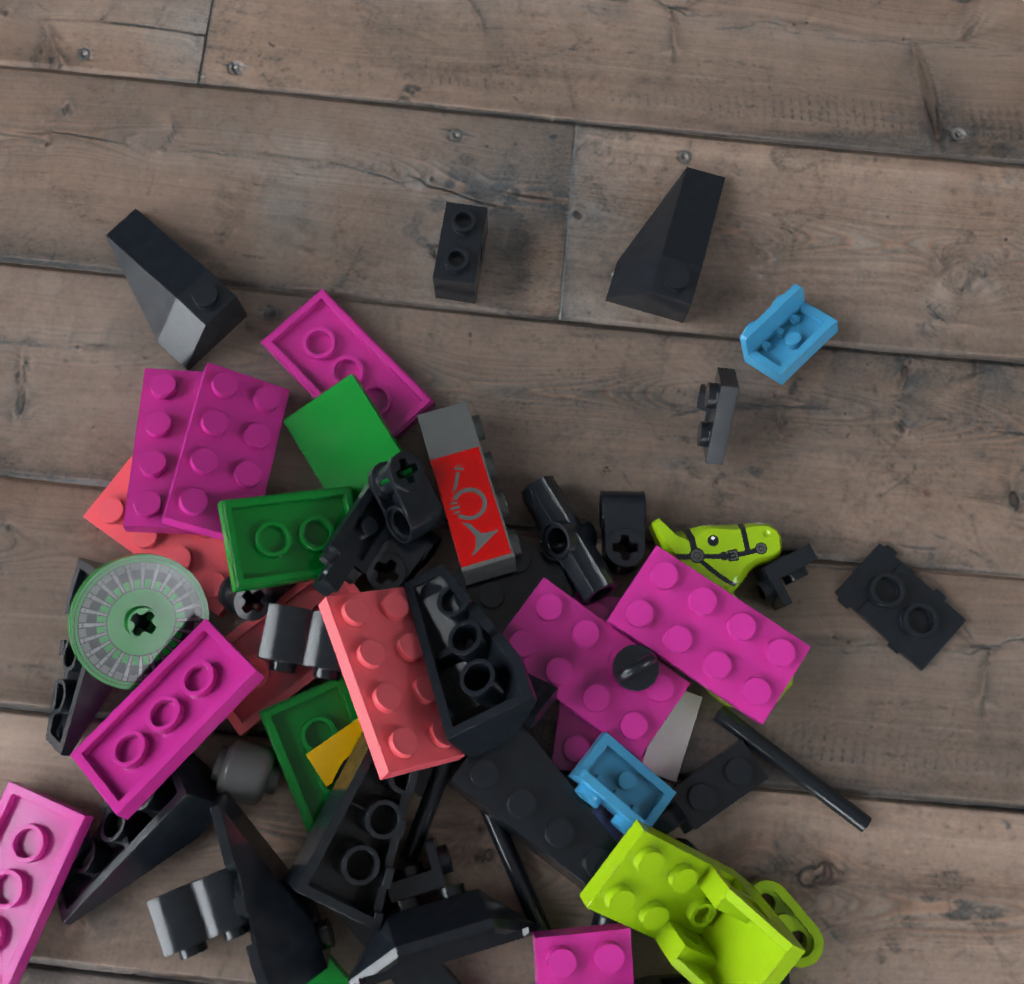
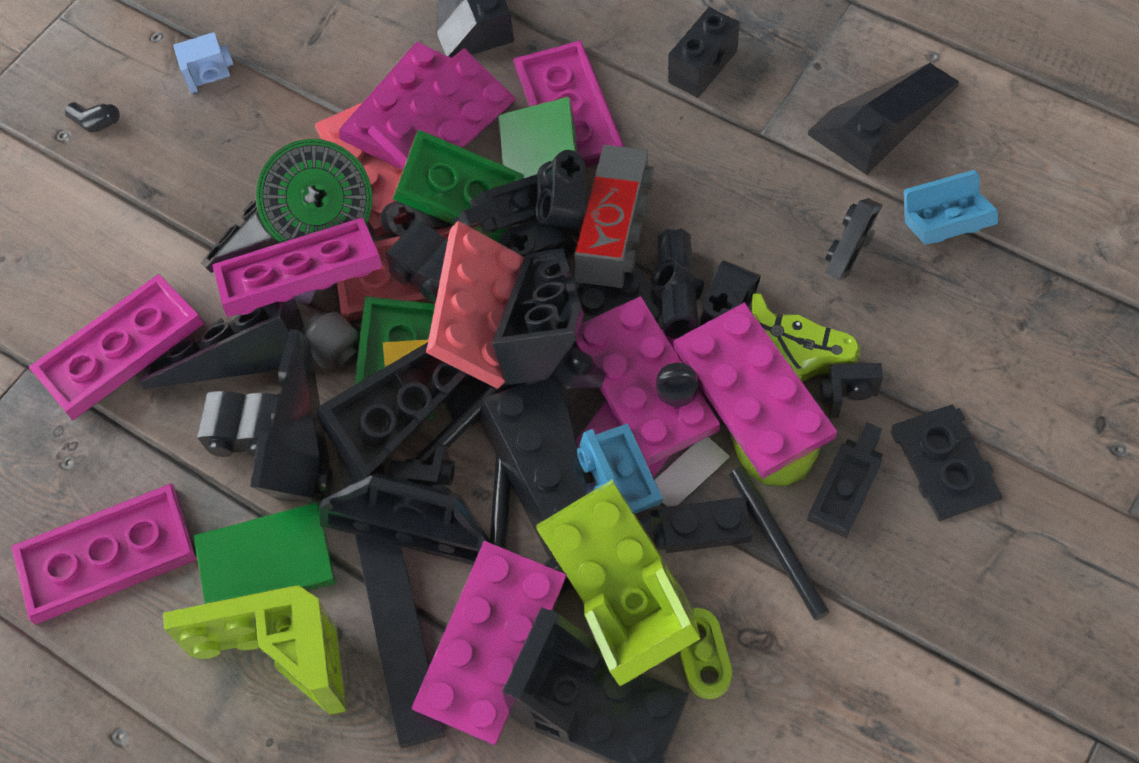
camera: 35 degrees right, 15 degrees down
(829, 677) = (847, 483): none -> black hinge

